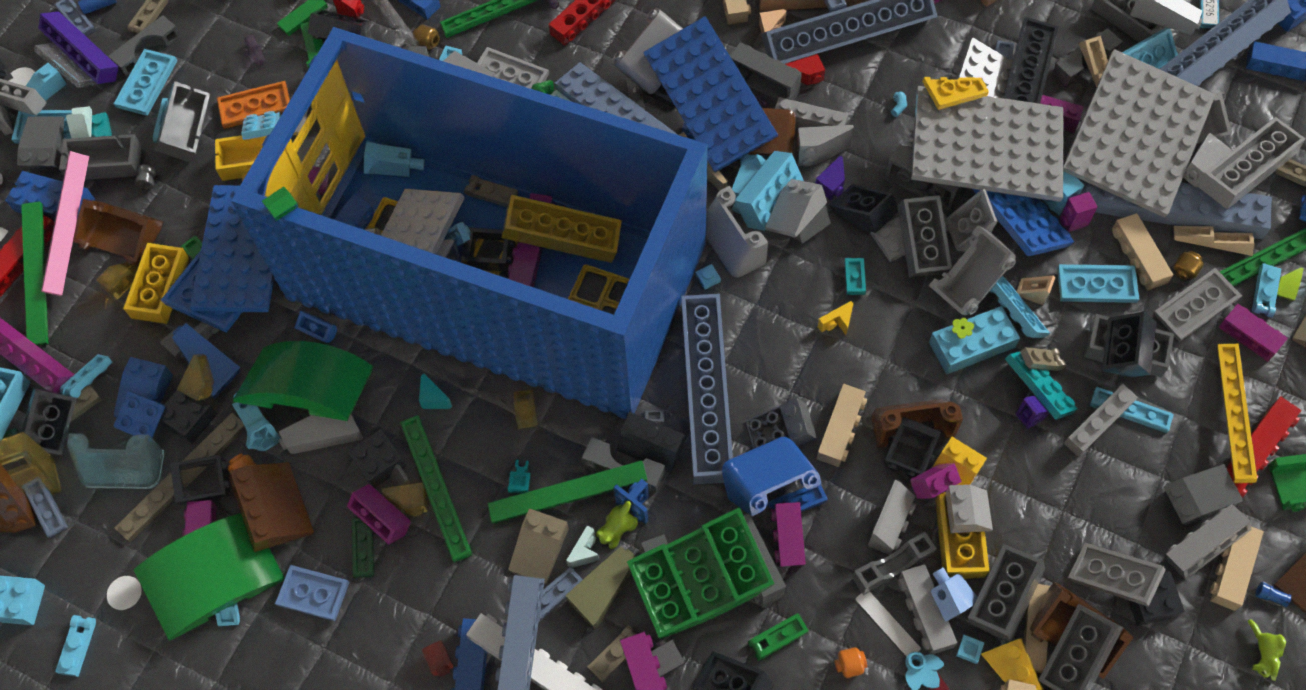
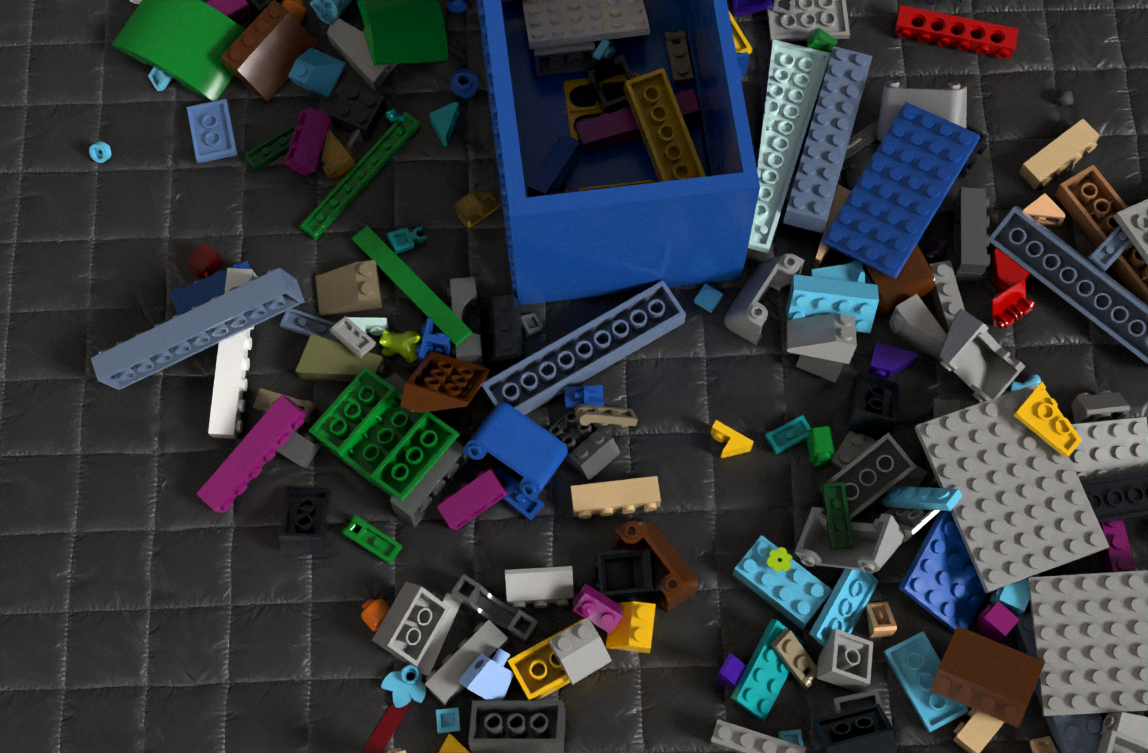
camera: 60 degrees right, 5 degrees up
(316, 475) = (317, 72): none -> dark azure slope
(397, 434) = (393, 115): none -> teal hand
(407, 362) = (464, 83): none -> blue plate
(591, 560) = (352, 337): none -> light grey plate
(683, 503) = (442, 384): none -> reddish brown slope
(744, 406) = (583, 395): none -> blue hips
(770, 397) = (605, 415): none -> dark tan plate
(836, 79) = (1011, 305): none -> red hinge
(870, 116) = (978, 358): none -> light grey windscreen
(876, 636) = (411, 623): none -> light grey brick
(880, 257) = (820, 446): none -> green brick
(945, 62) = (1099, 407): none -> light grey slope
(947, 270) = (837, 515): none -> dark green tile
(968, 202) = (922, 498): none -> medium azure plate
(1061, 325) = (846, 661): none -> light grey slope
(1122, 235) = (987, 676): none -> reddish brown slope

